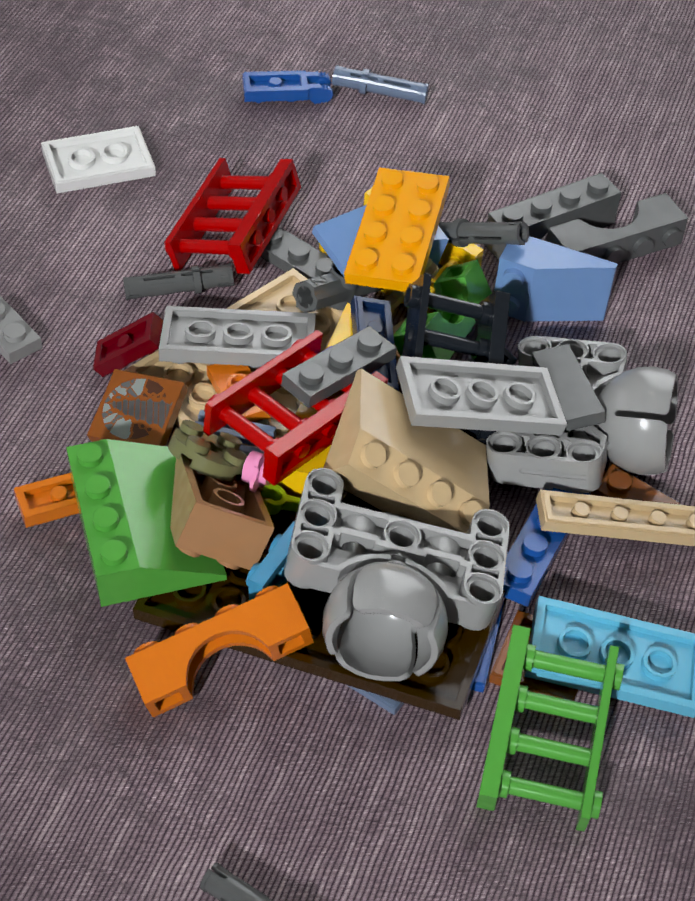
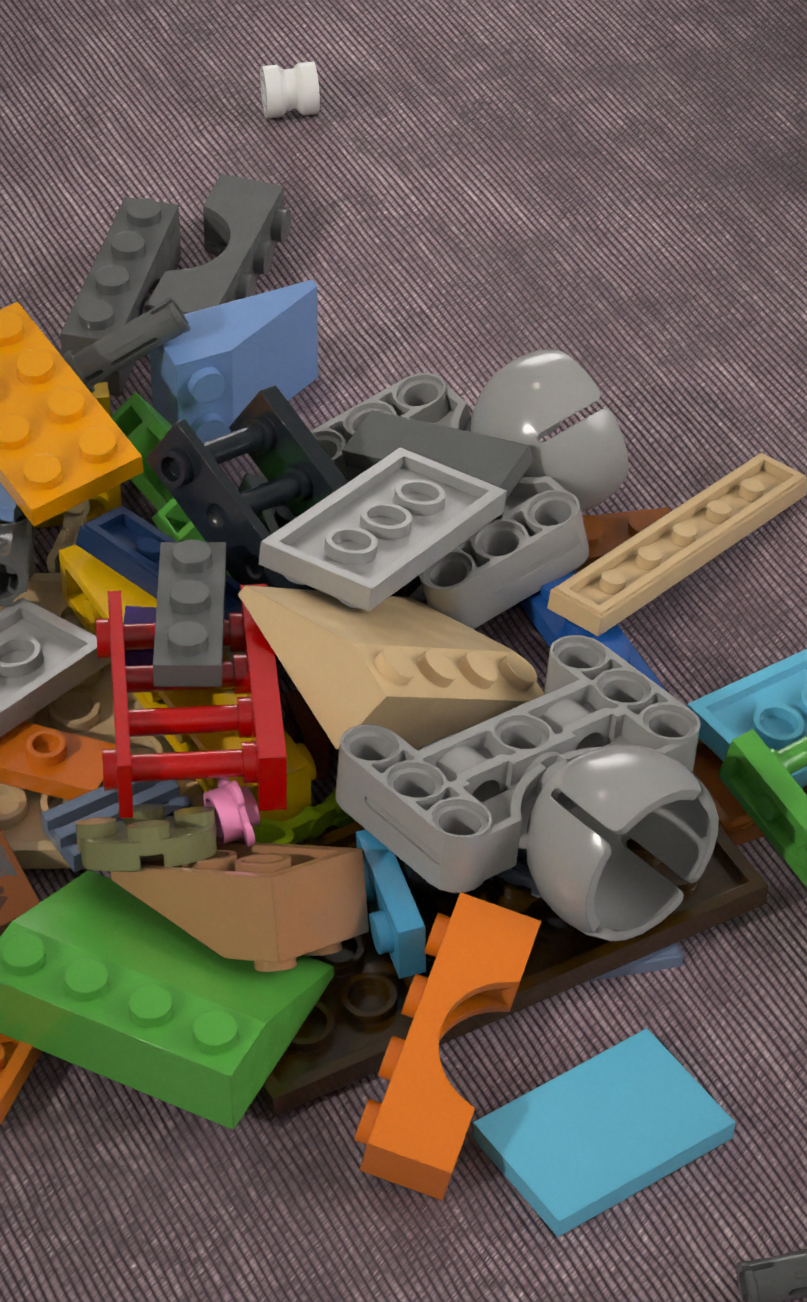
camera: 45 degrees left, 5 degrees down
(251, 752) = (602, 1131): none -> medium azure tile

